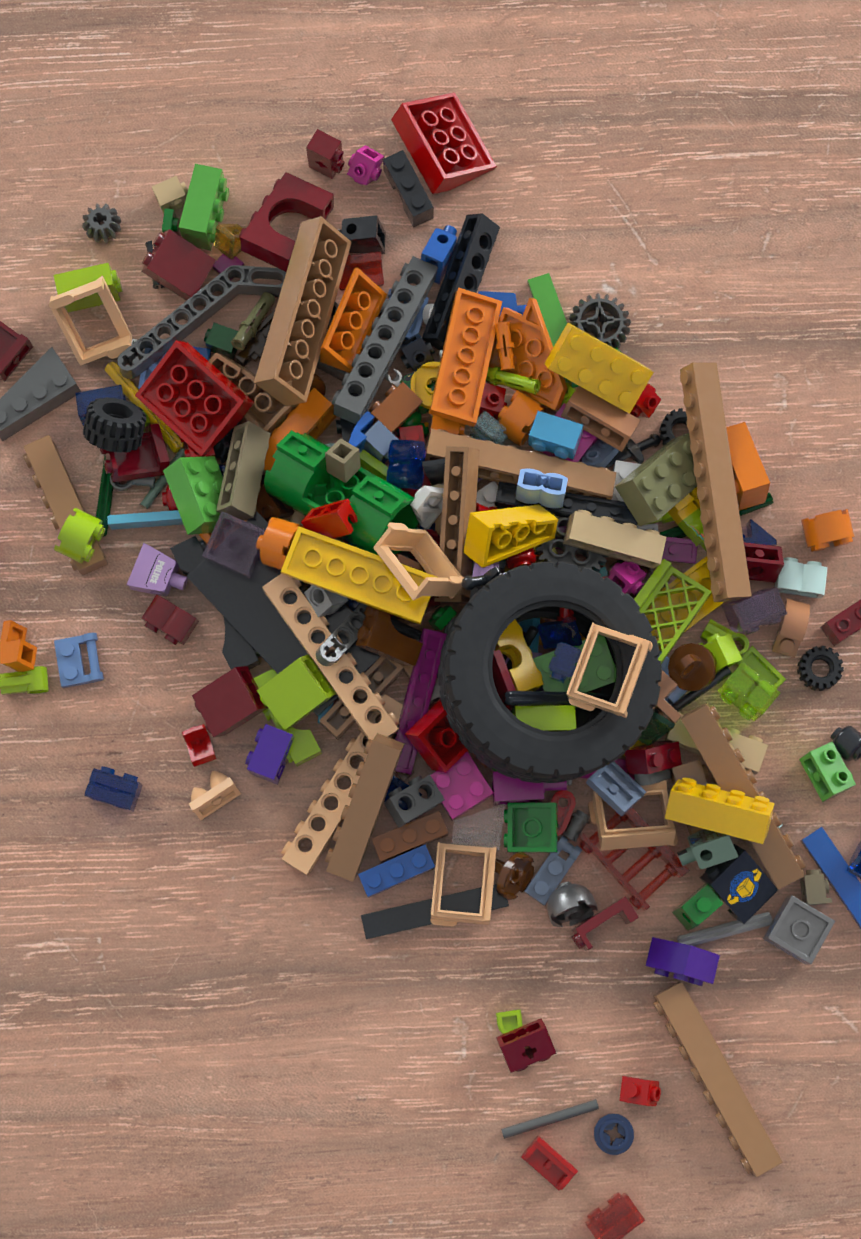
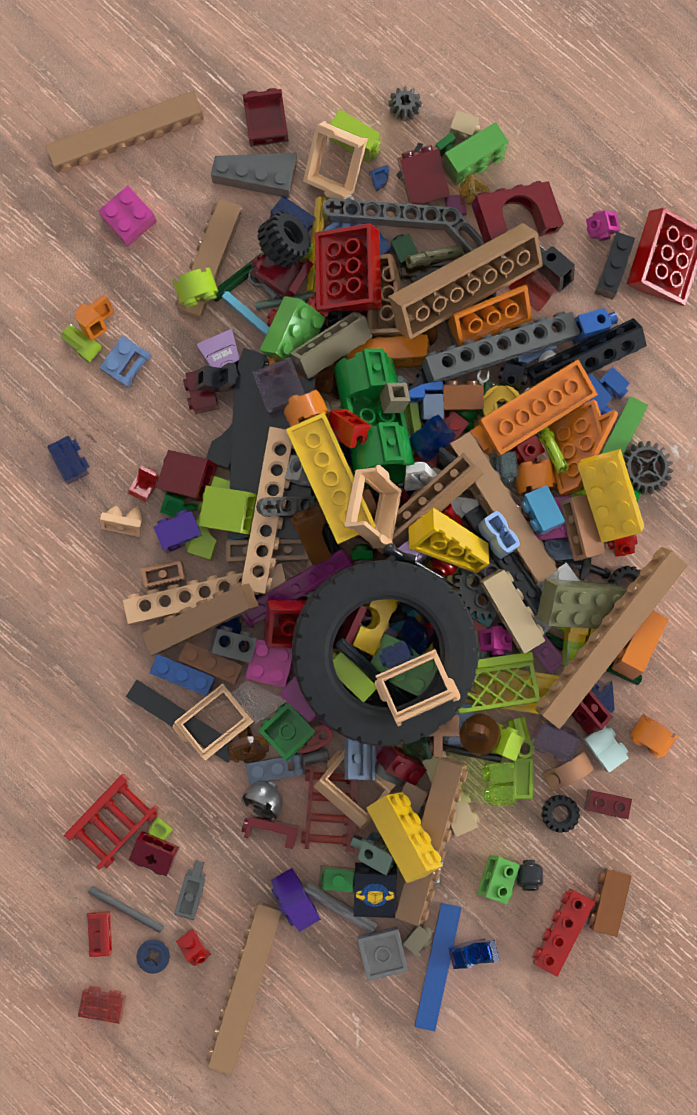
camera: 45 degrees right, 5 degrees up
(140, 302) = (379, 177): none -> blue tile
(175, 594) = (217, 379): none -> black brick
(243, 737) = (174, 504): none -> green plate
(294, 803) = (163, 574): none -> nougat brick
(325, 154) = (584, 193): dark red brick -> none
(442, 1069) = (91, 816): none -> red fence
(502, 330) = (560, 435): orange pin -> none
(505, 281) = (614, 383): none -> blue brick
(589, 1046) = (191, 892): none -> dark grey hinge

